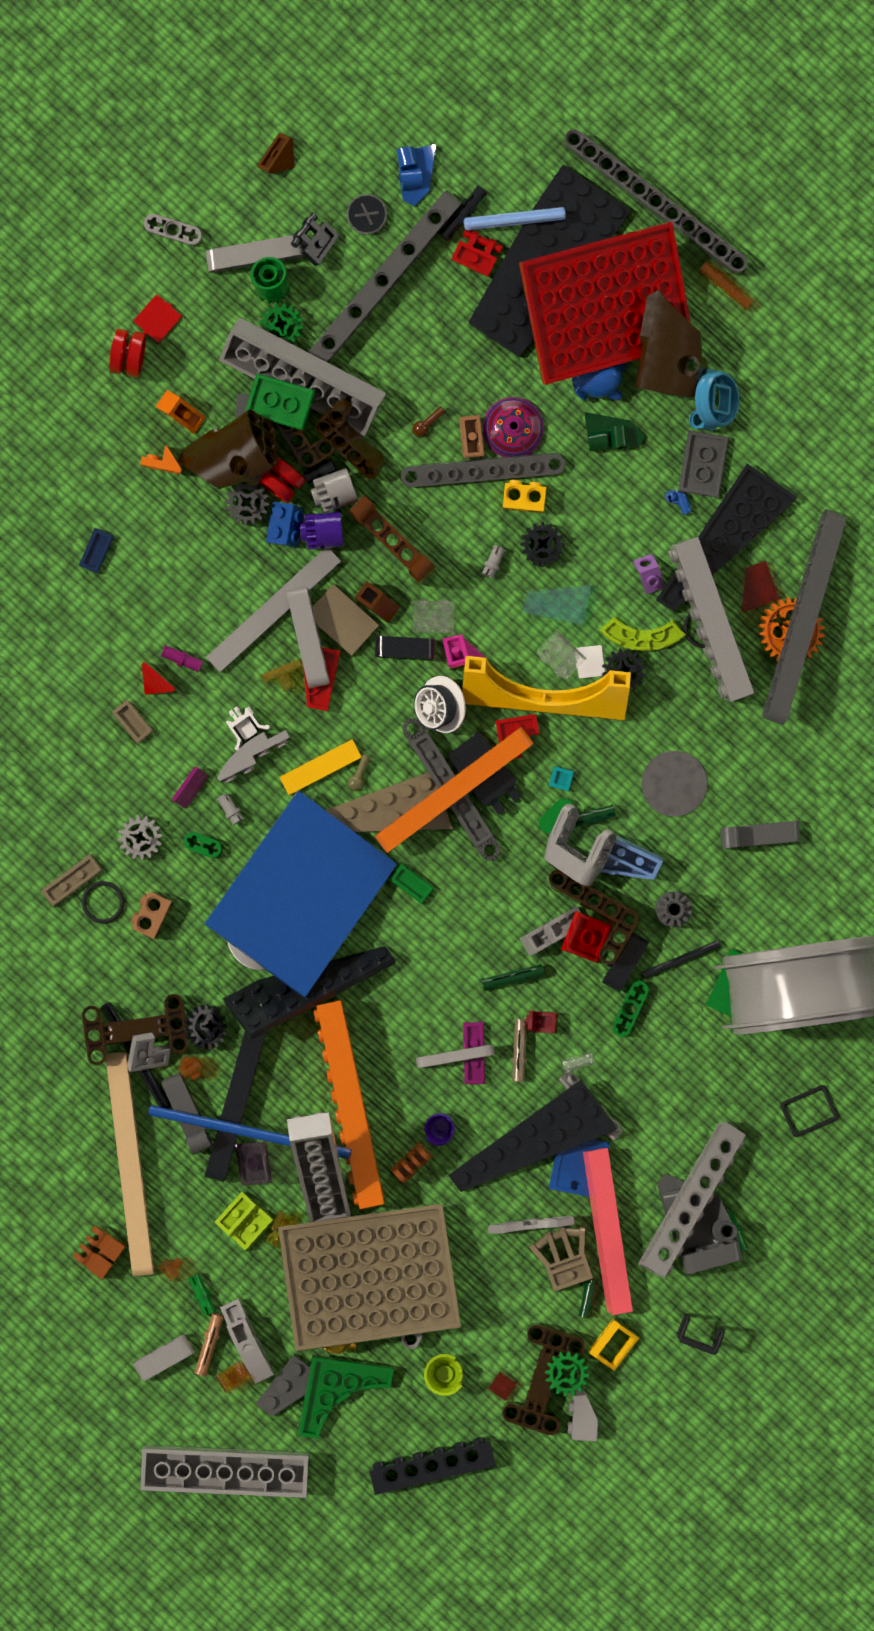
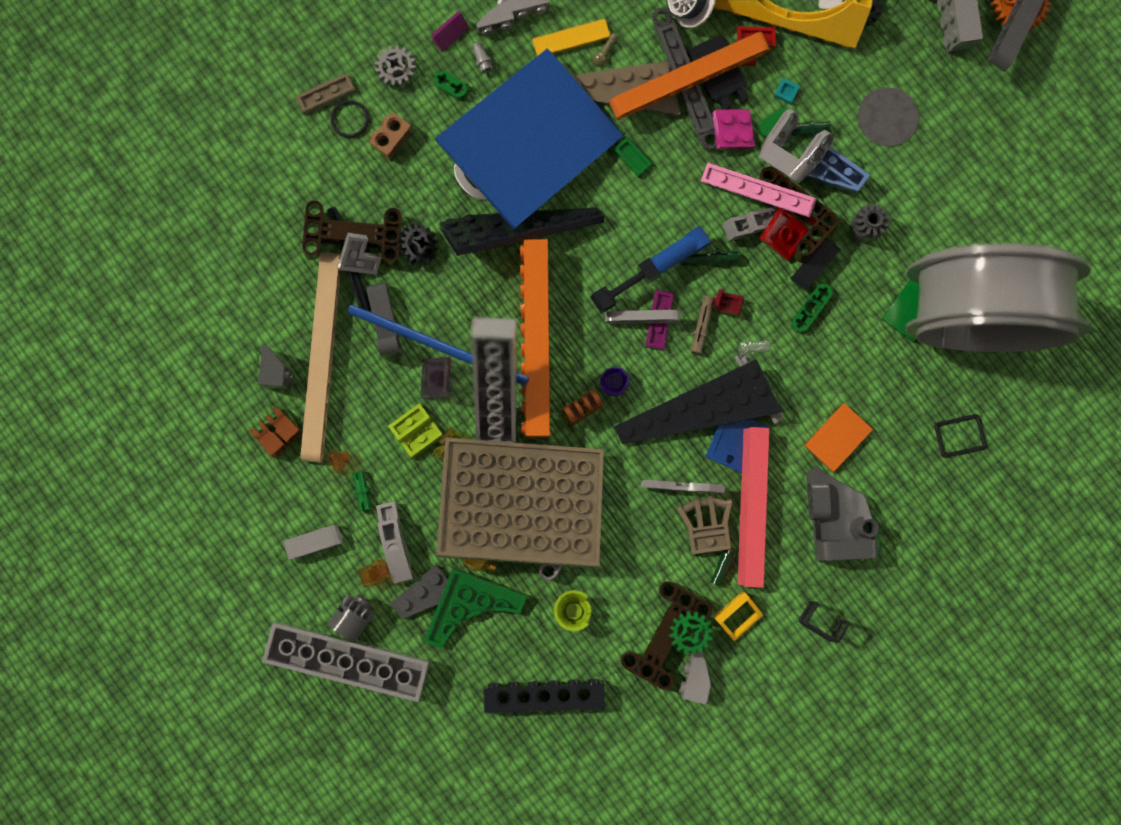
camera: 15 degrees right, 5 degrees down
(86, 1190) = (273, 371): none -> dark grey slope
(190, 1067) = (396, 279): clear orange gear -> none
(209, 1344) = (347, 559): medium nougat pin -> none
(220, 1426) = (352, 617): none -> dark grey gear
(234, 1106) = (432, 318): black beam -> none
(458, 1002) = (653, 267): none -> piece
(502, 1385) = (625, 634): clear red tile -> none
(512, 833) = (733, 129): none -> dark pink plate
(550, 898) = (758, 190): none -> bright pink tile
(651, 1259) = (793, 540): light grey brick -> none
(681, 959) = (866, 273): black piece -> none
(682, 1139) = (838, 437): none -> orange tile
(759, 834) = (942, 172): dark grey beam -> none

